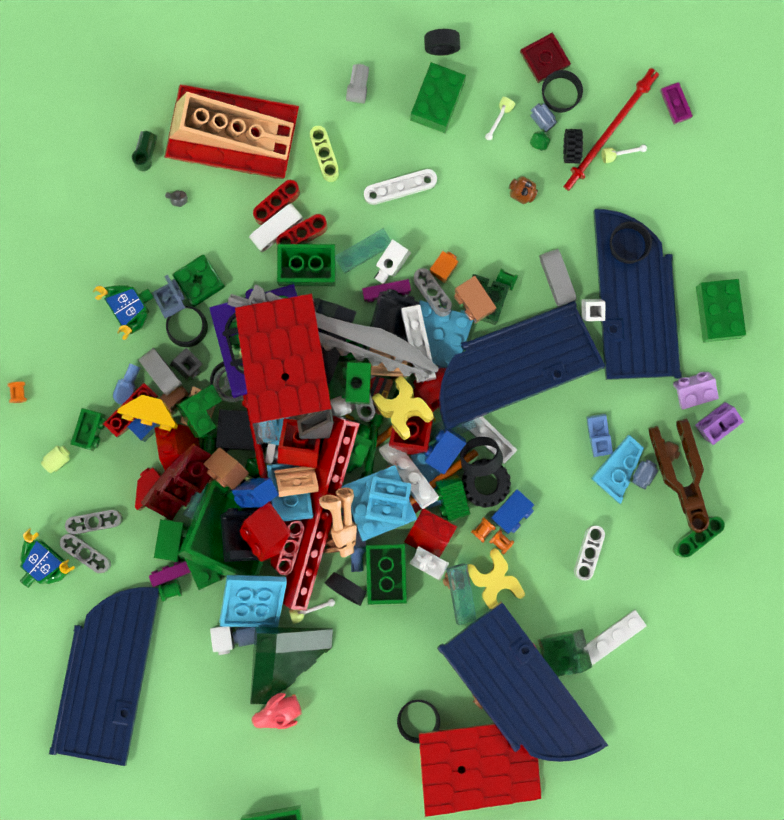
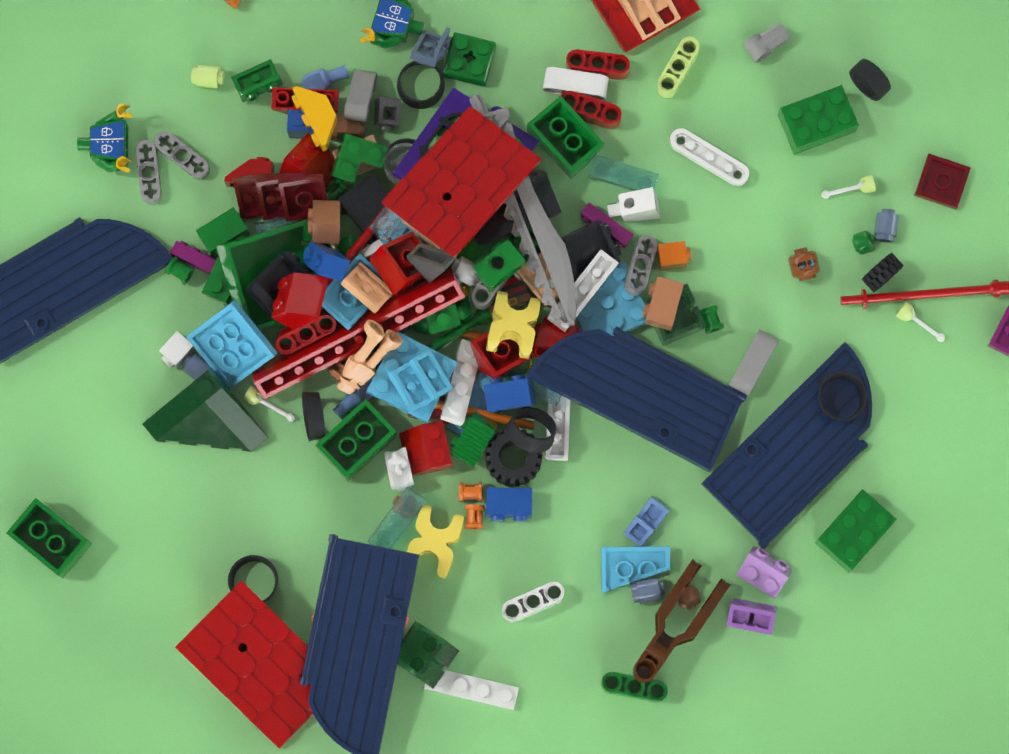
camera: 50 degrees right, 5 degrees down
(278, 712) = (155, 453): coral animal -> none
(566, 75) = (924, 200): black tyre -> none
(593, 309) = (752, 417): white brick -> none

